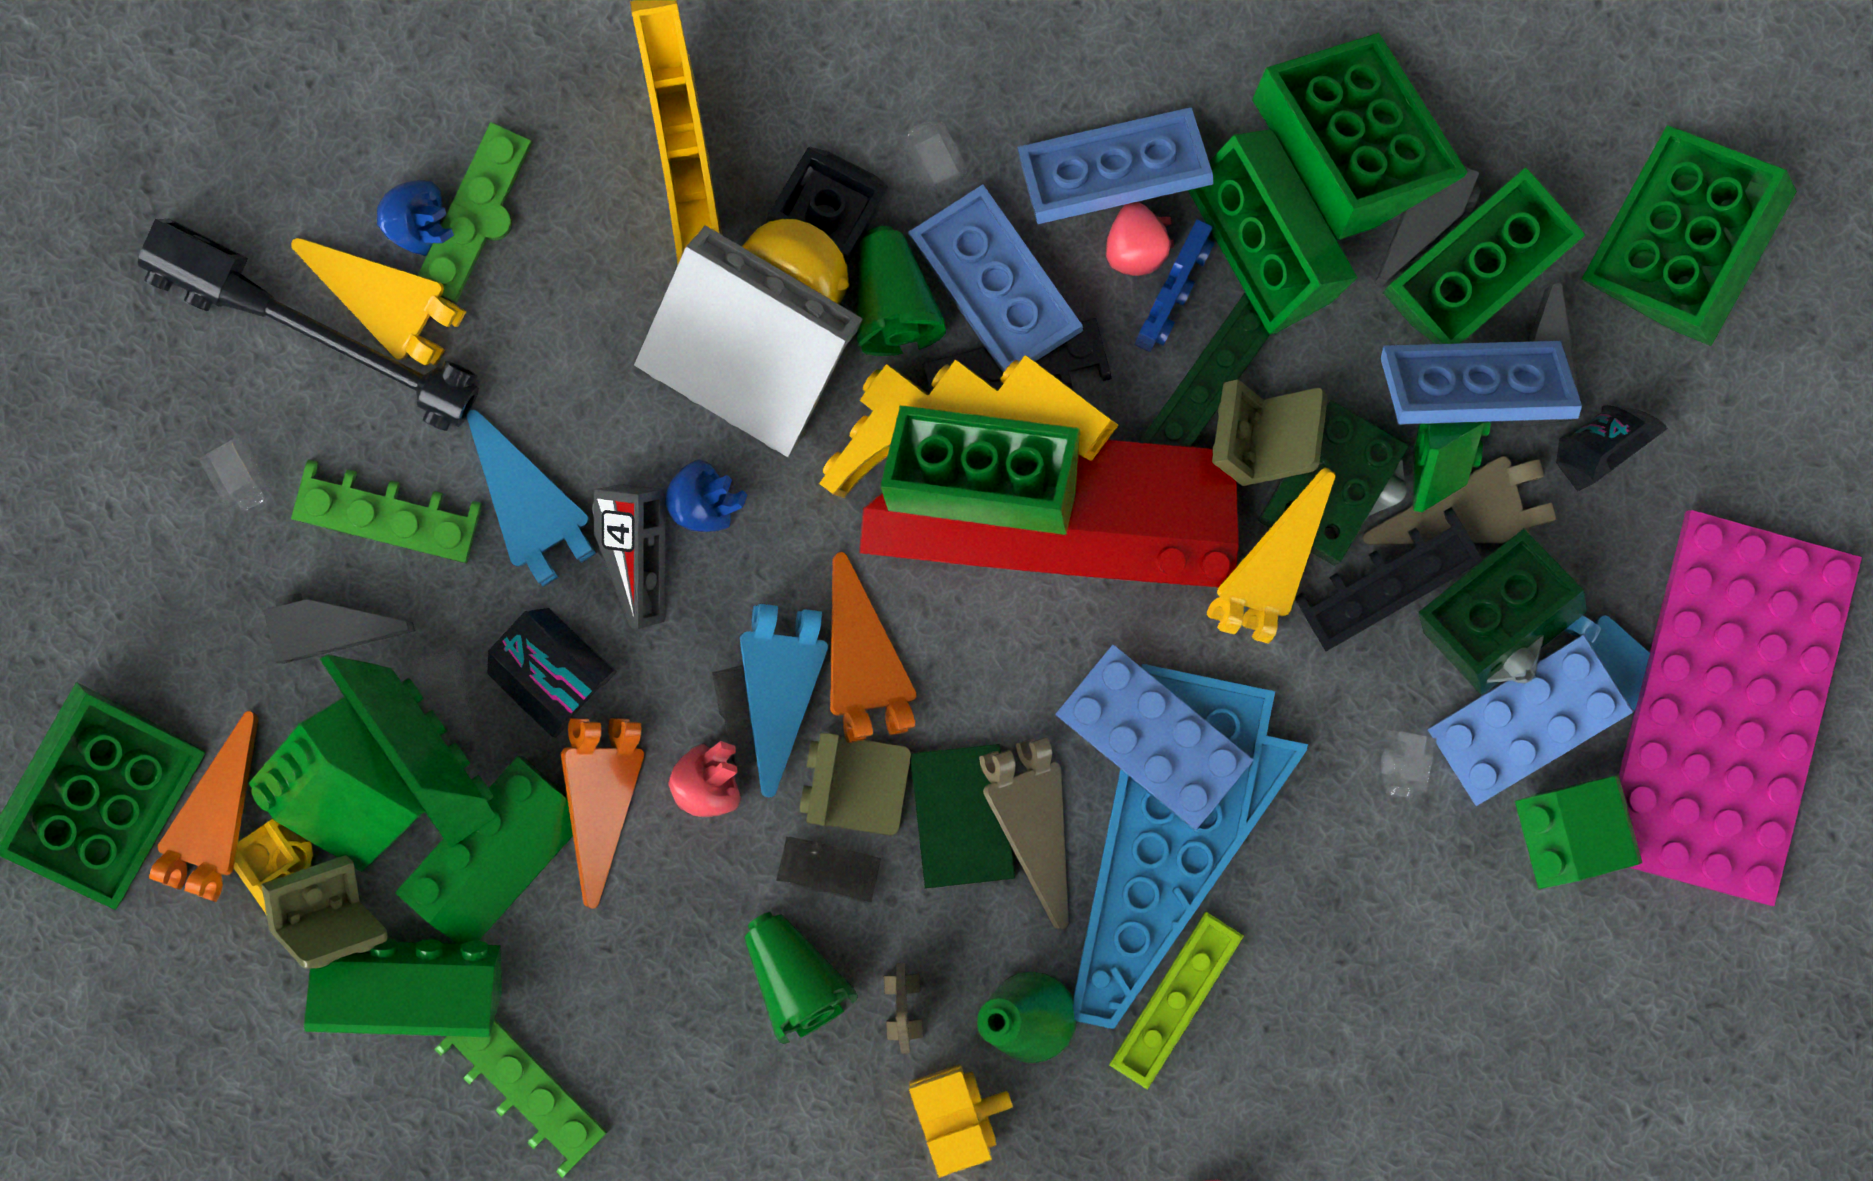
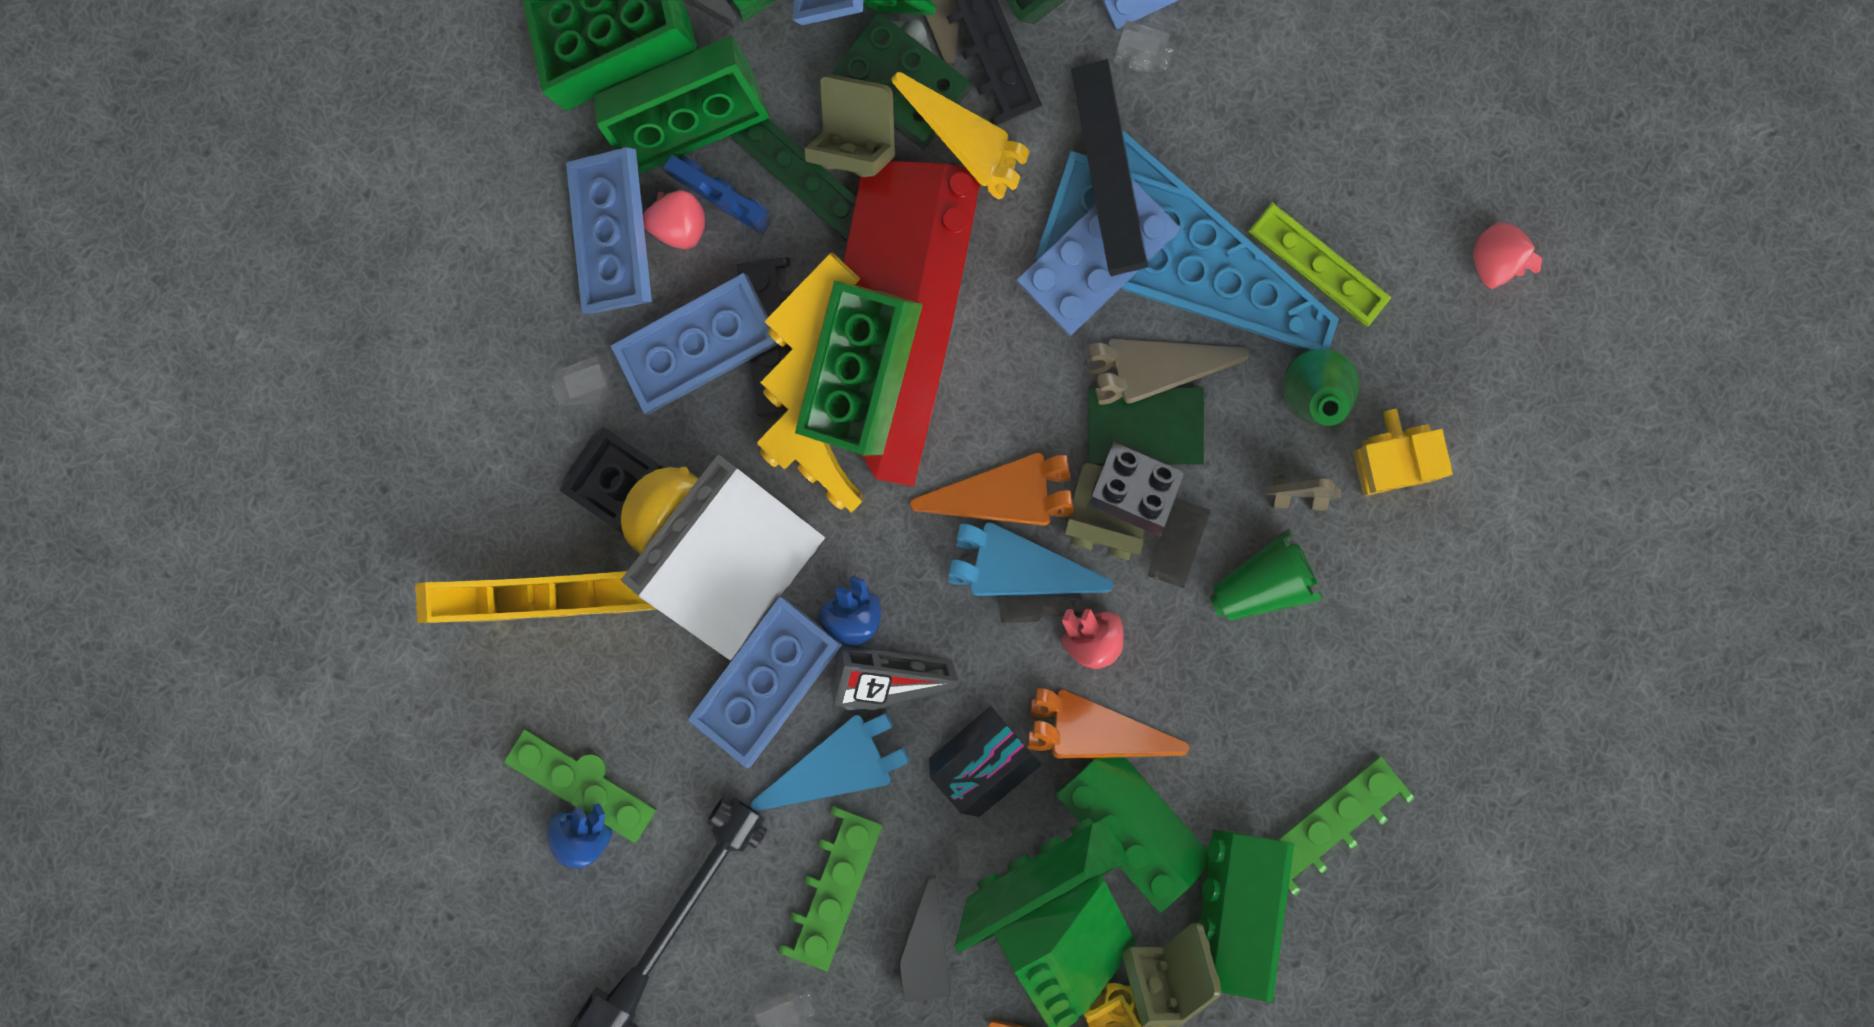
camera: 85 degrees left, 0 degrees up
(384, 299) = (646, 871): yellow flag -> none
(613, 407) = (764, 682): none -> medium blue plate
(883, 810) = (1136, 489): none -> black plate
(893, 297) = (697, 431): green cone -> none
(1257, 737) = (1109, 168): none -> black tile

